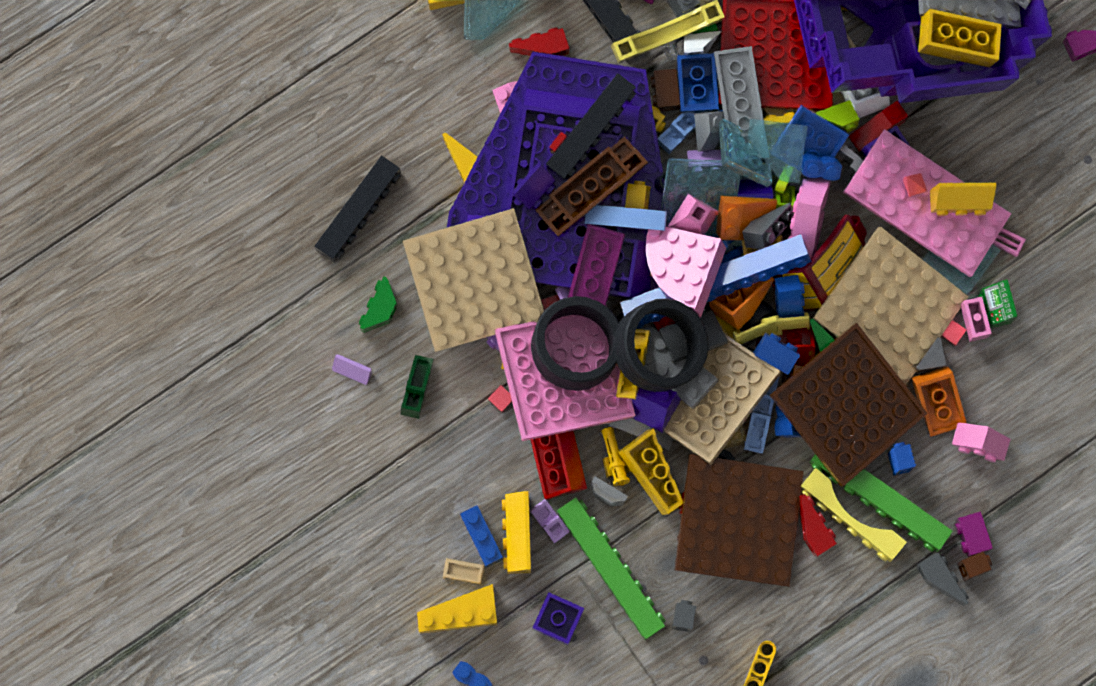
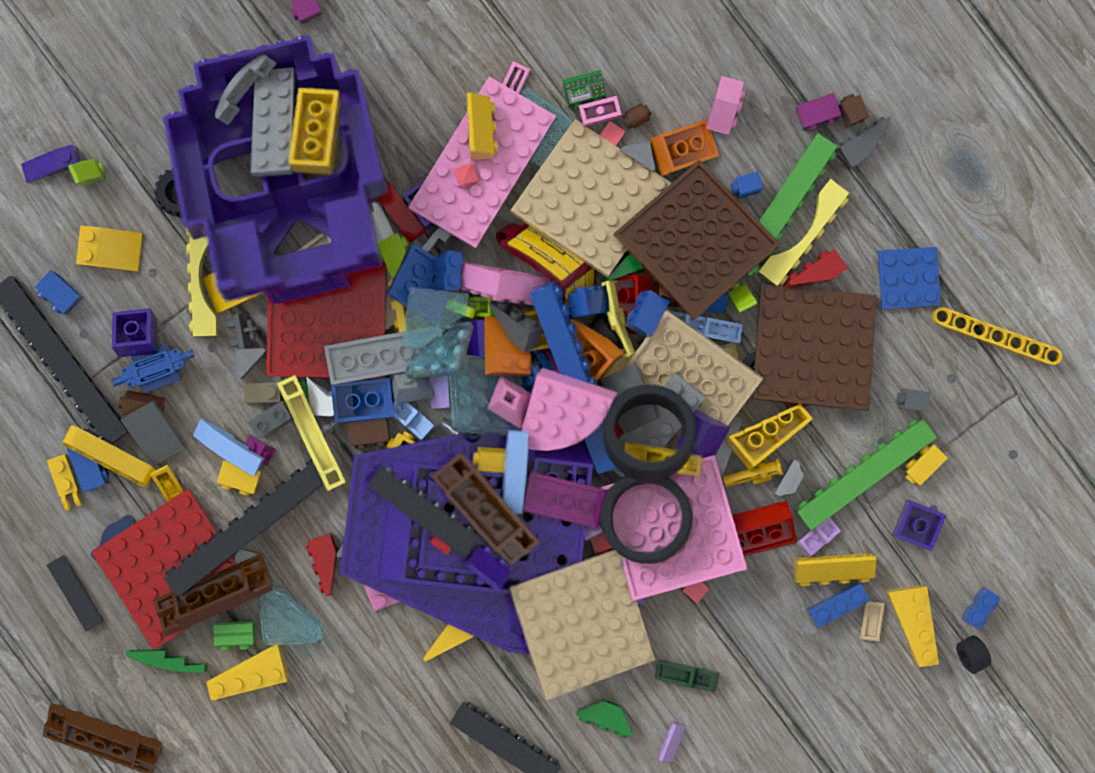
camera: 90 degrees left, 10 degrees up
(426, 669) = (973, 654): none -> black tyre
(618, 628) = (922, 467): none -> yellow brick
(789, 450) = (741, 297): none -> lime slope
(805, 620) = (909, 278): none -> blue plate
(970, 356) = (636, 116): none -> reddish brown brick

